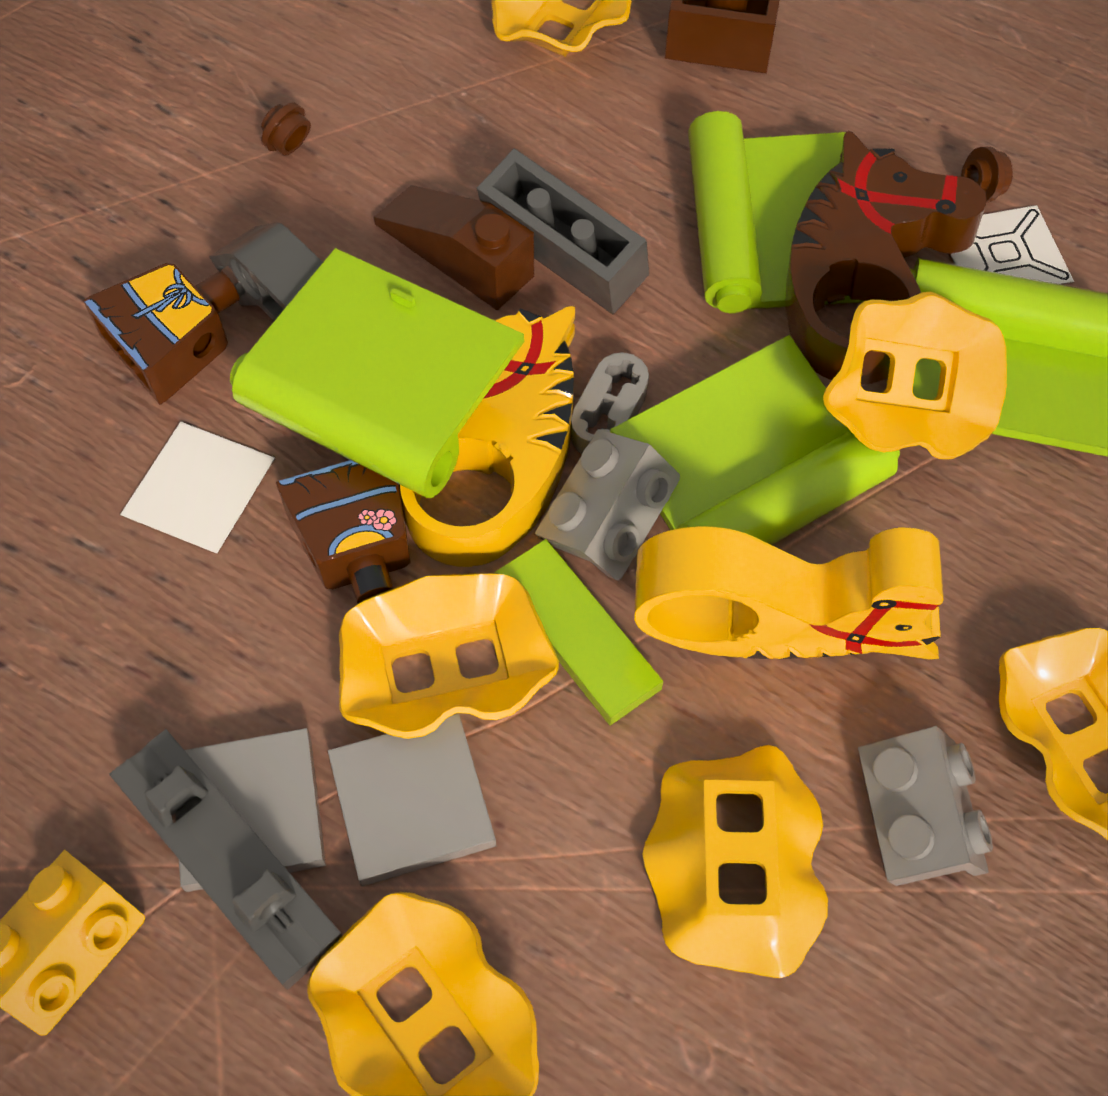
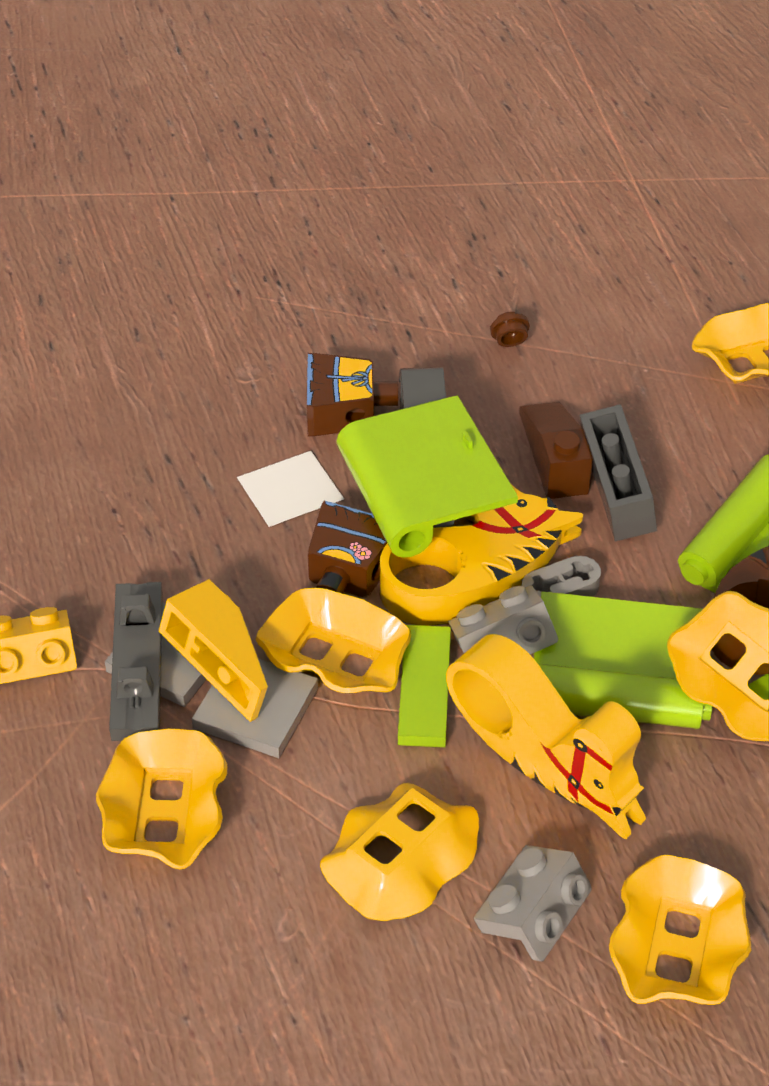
camera: 40 degrees right, 15 degrees down
(314, 763) = (215, 640): none -> yellow slope

